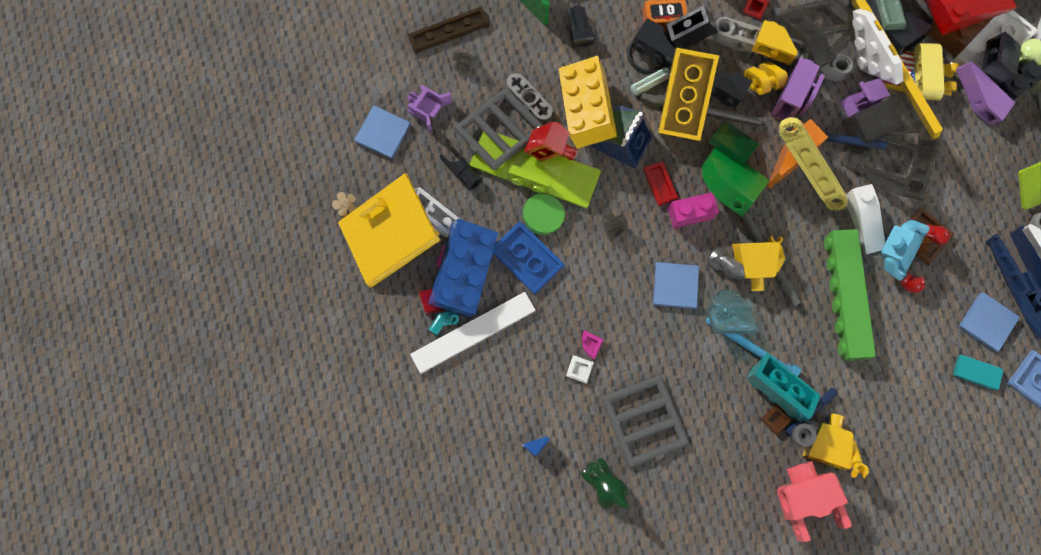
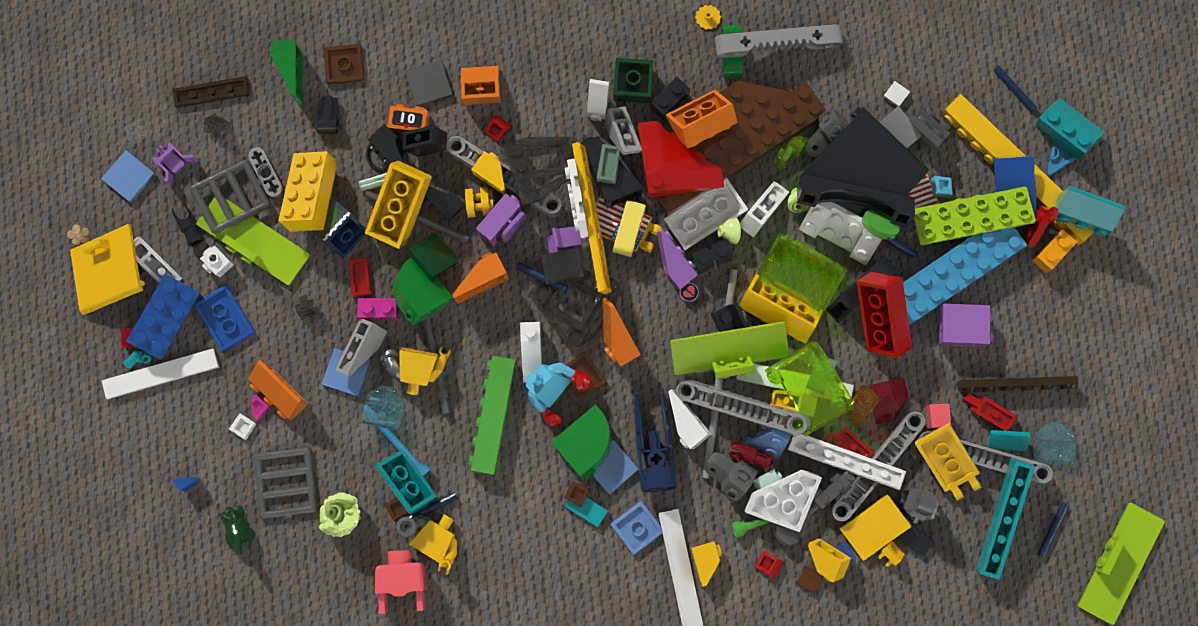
camera: 20 degrees right, 5 degrees up
(503, 198) = (216, 261): none -> white brick
(543, 214) = (248, 282): bright green tile -> none
(550, 142) = (264, 221): red brick -> none
(611, 319) = (276, 390): none -> orange slope
(689, 252) = (361, 346): none -> light grey slope
(722, 440) = (339, 514): none -> yellowish green hair
(813, 164) = (483, 295): light yellow plate -> none
(959, 176) = (616, 337): none -> orange slope
(960, 301) = (586, 442): none -> green brick
(967, 358) = (577, 494): none -> reddish brown tile
(1001, 58) = (694, 232): black brick -> none
(1006, 126) = (689, 292): none -> tile

